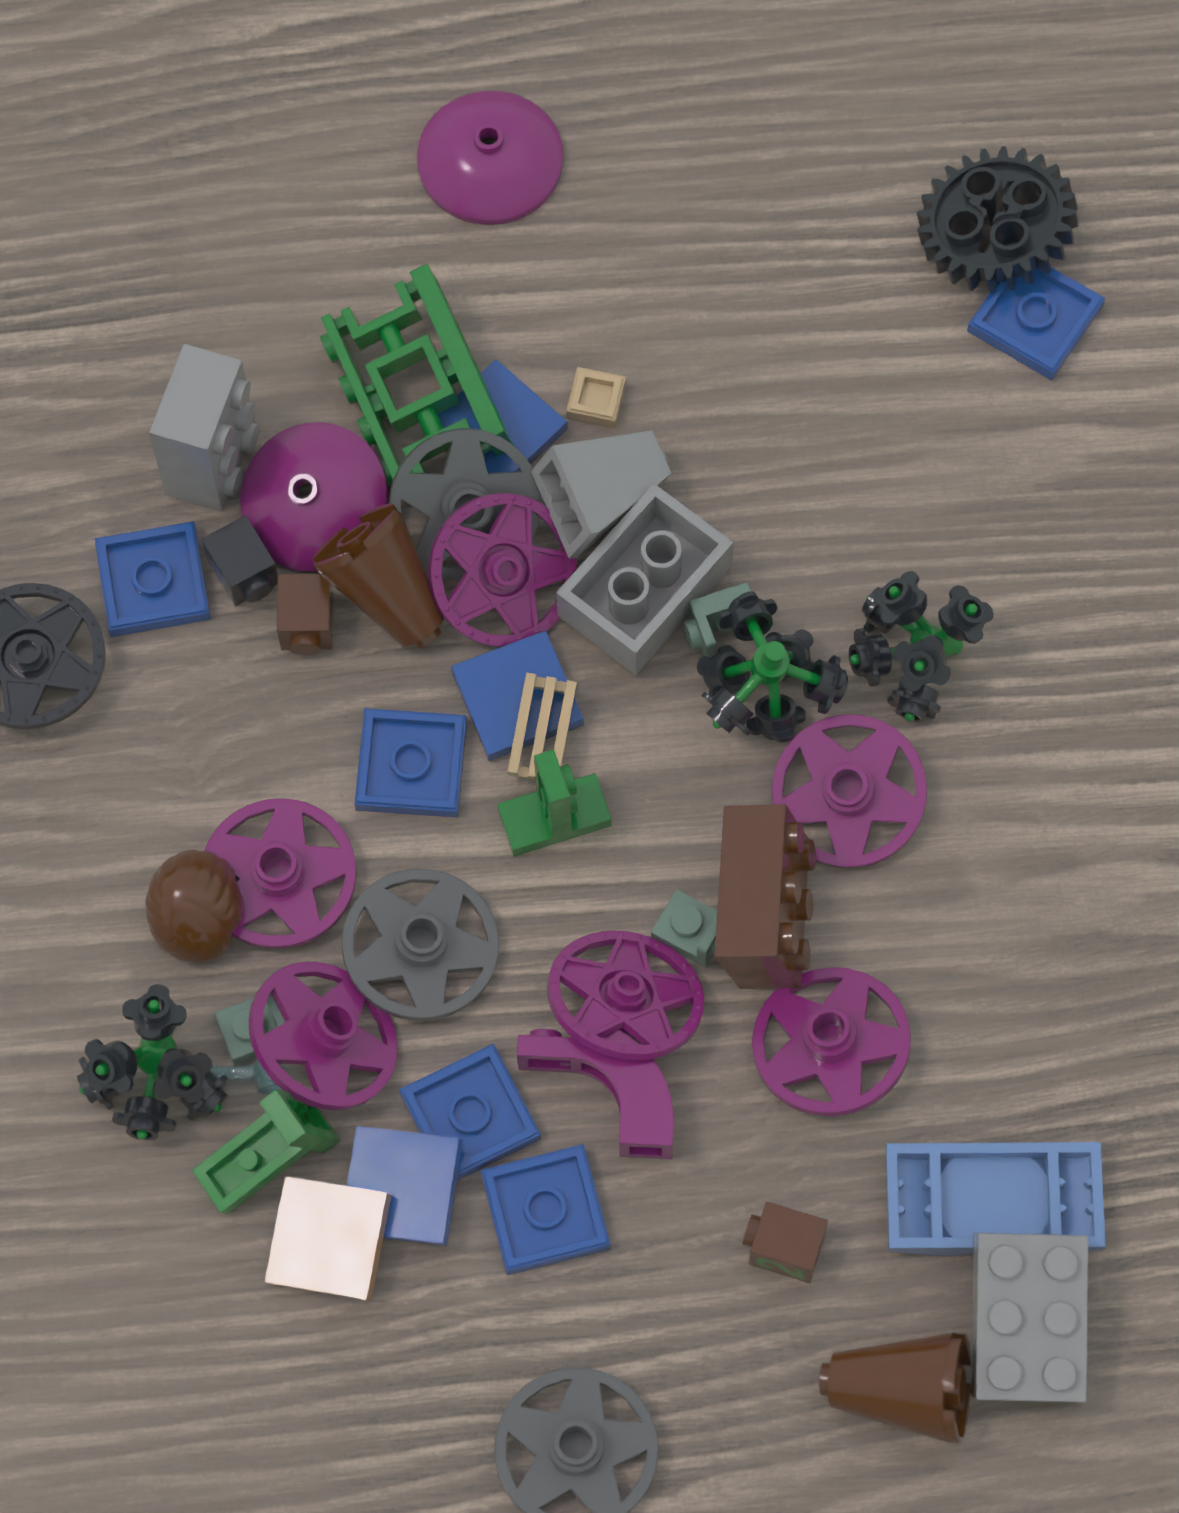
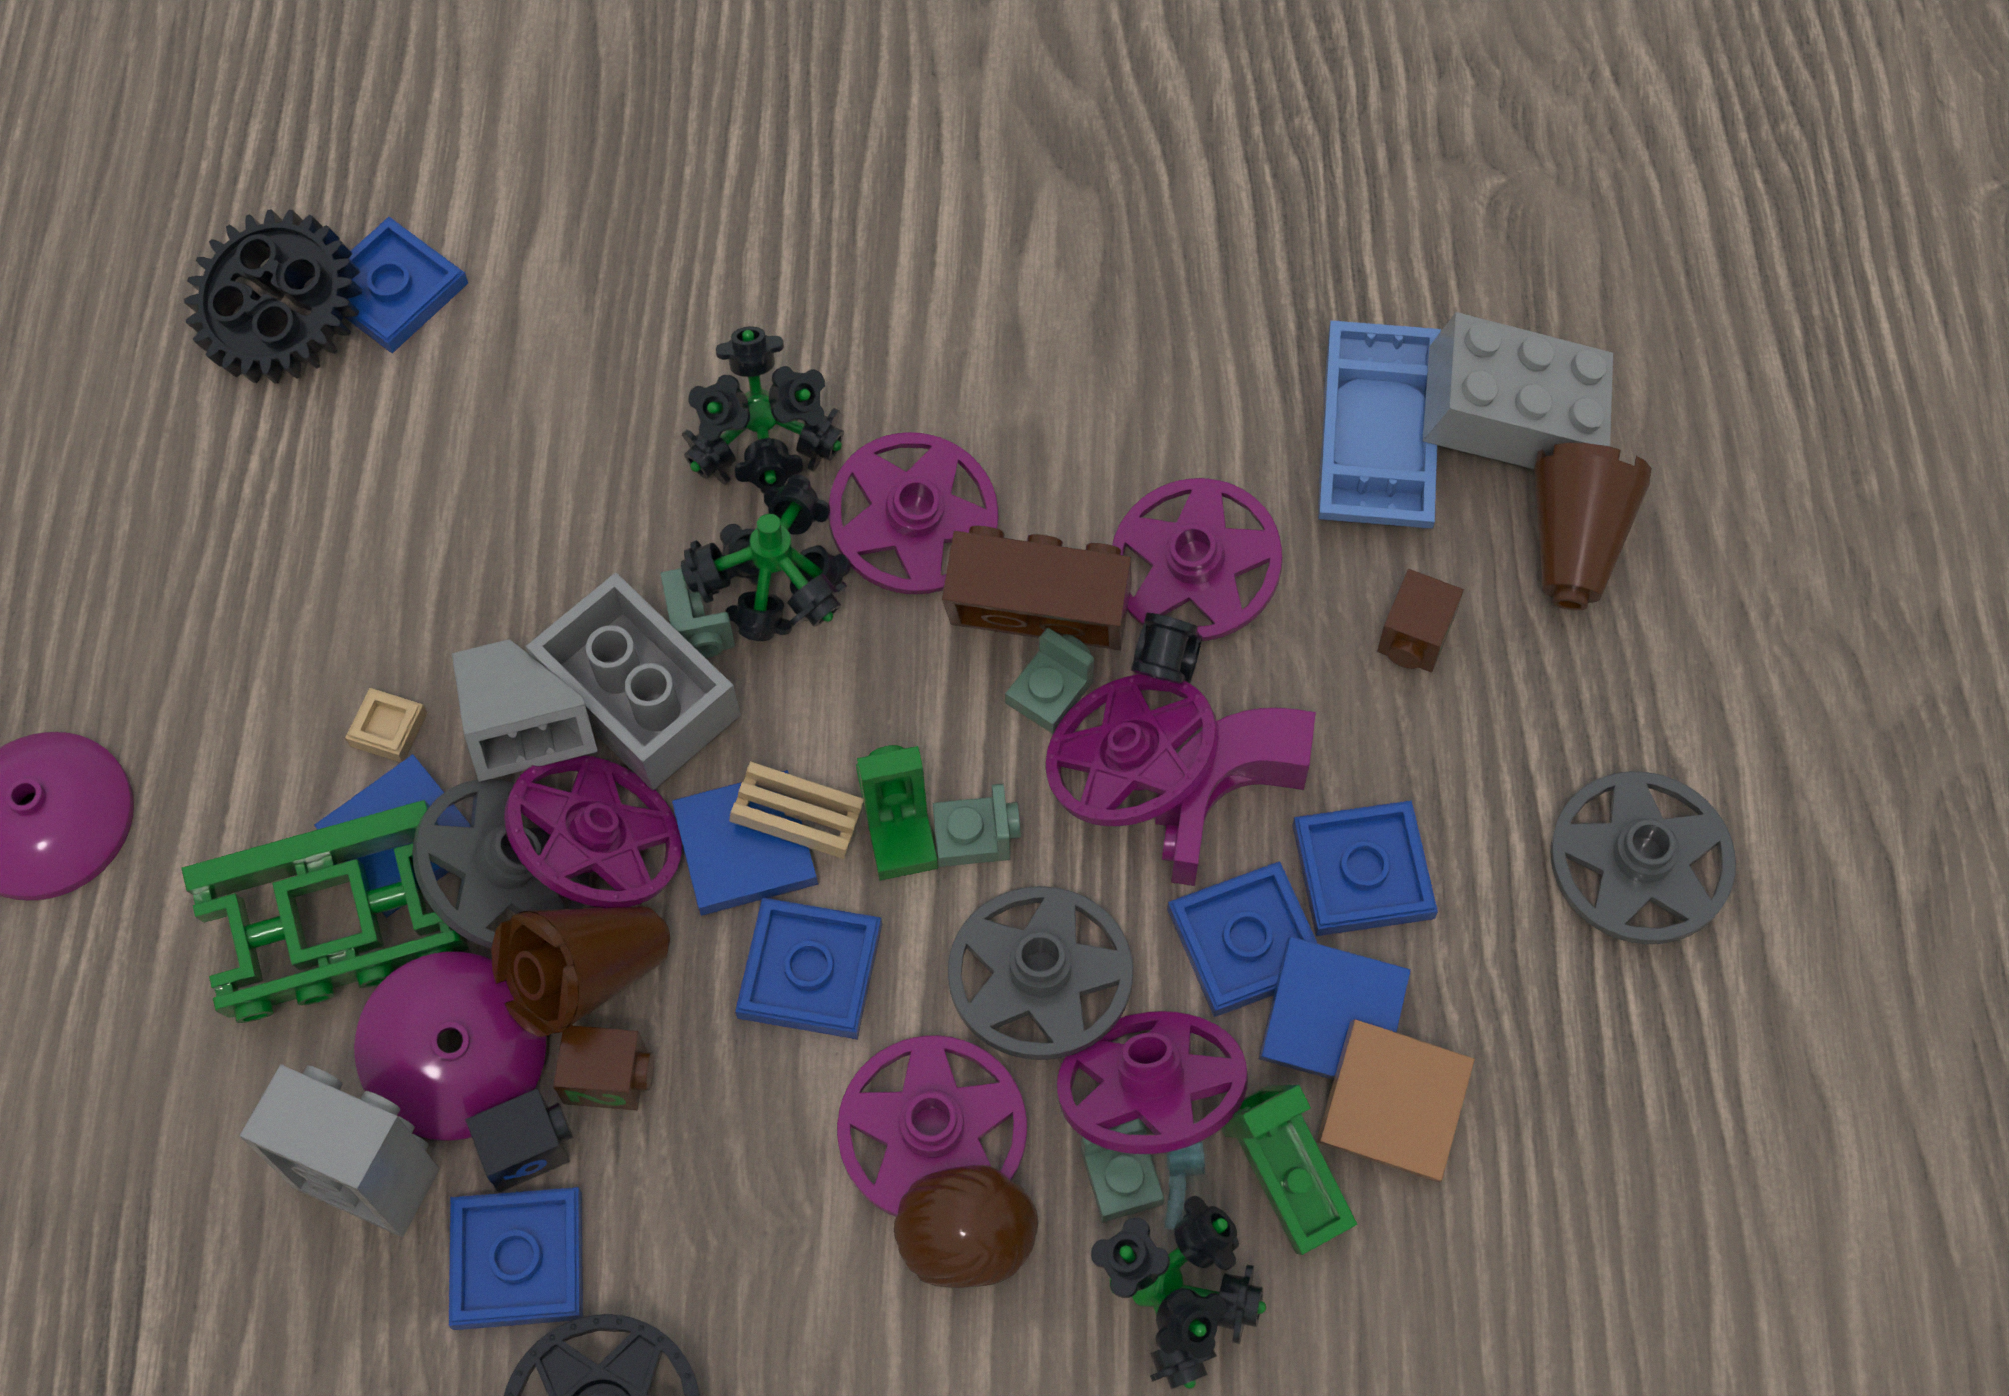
camera: 85 degrees left, 5 degrees down
(547, 879) = (975, 829): none -> sand green bracket
(719, 1016) = (1167, 649): none -> black piece

